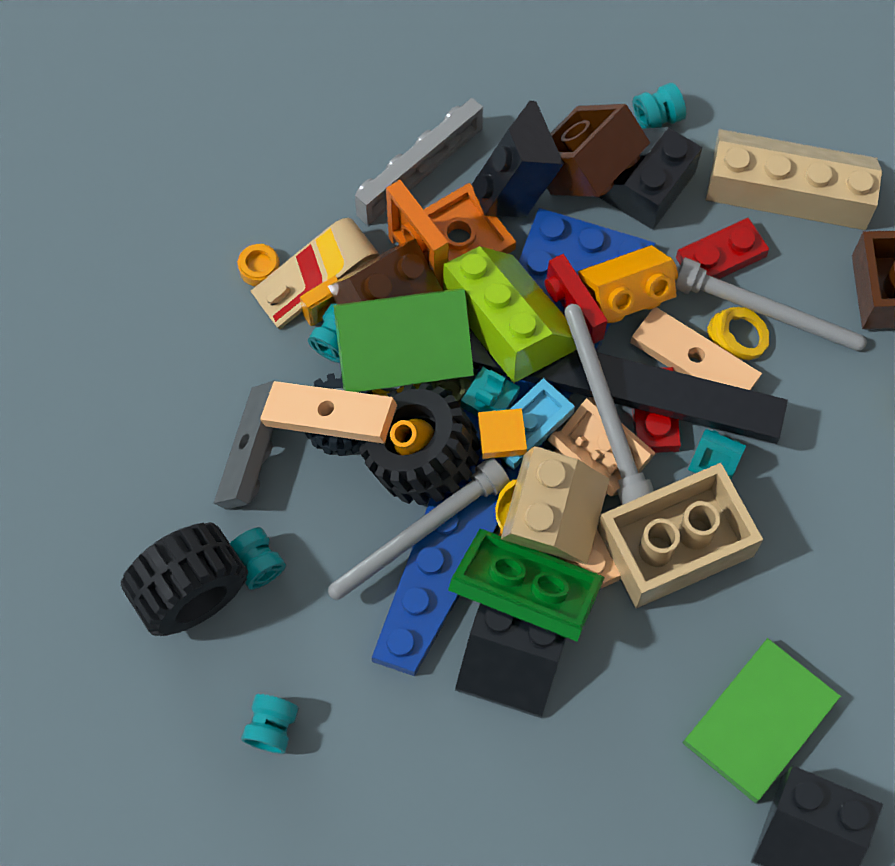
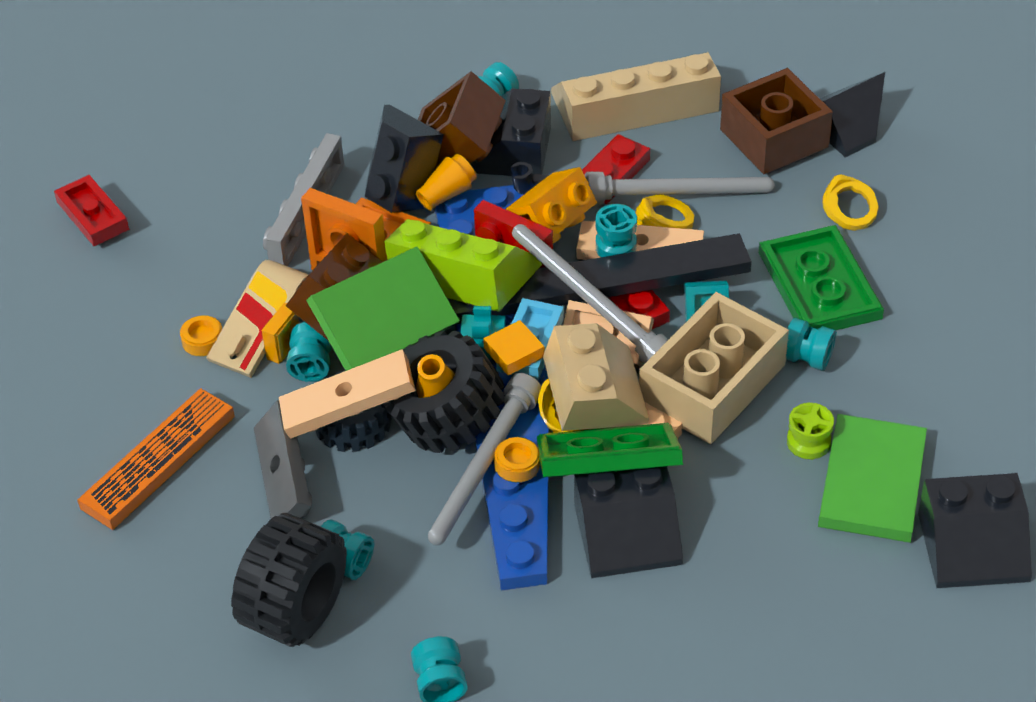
camera: 25 degrees left, 20 degrees down
(156, 378) = (156, 459): none -> orange tile
(230, 81) = (91, 210): none -> red plate
(447, 545) = (517, 459): none -> light orange tile
(549, 208) = (447, 181): none -> light orange cone
(625, 242) = (523, 177): none -> black hand
(671, 353) = (616, 230): none -> teal wheel
(736, 635) = (809, 419): none -> lime wheel
(795, 552) = (810, 344): none -> teal wheel
(843, 478) = (821, 279): none -> green tile

